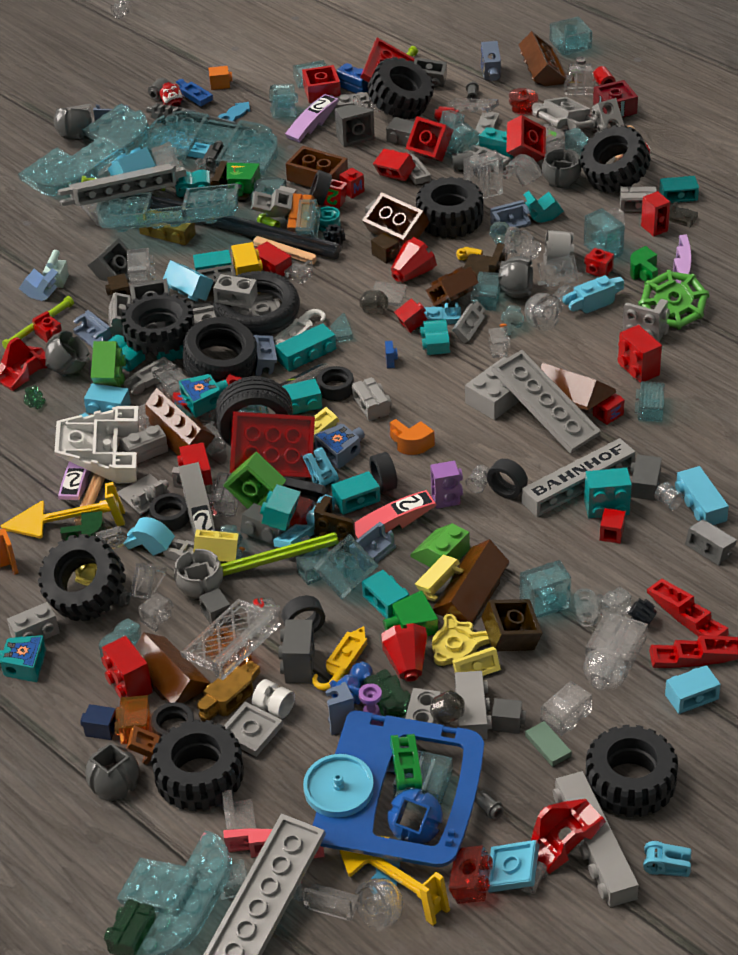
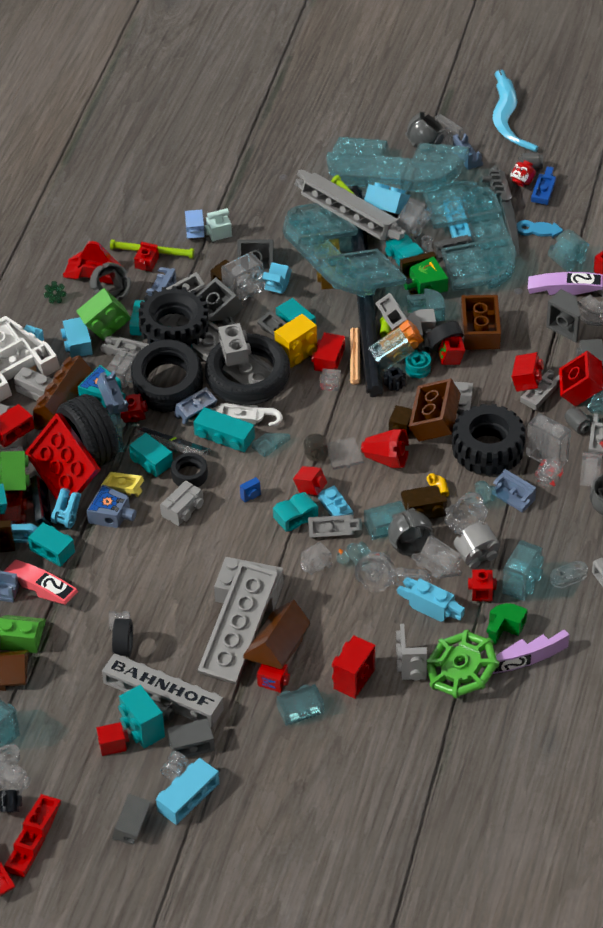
camera: 60 degrees right, 5 degrees up
(83, 82) = (504, 108): none -> medium azure animal
(161, 257) = (277, 278): none -> medium azure brick
(188, 281) = (254, 309): medium azure brick -> none
(220, 77) = (579, 192): orange brick -> none
(220, 379) = (111, 393): none -> sand blue hinge
(354, 182) = (481, 355): red brick -> none
(383, 471) = (82, 550): black tyre -> none
(412, 440) = (145, 552): orange brick -> none
(446, 484) = (89, 598): medium lavender brick -> none
(452, 286) = (370, 492): reddish brown brick -> none
(507, 192) = (549, 472): none -> clear head
(544, 209) = (540, 509): teal brick -> none
(655, 213) = (586, 597): red brick -> none

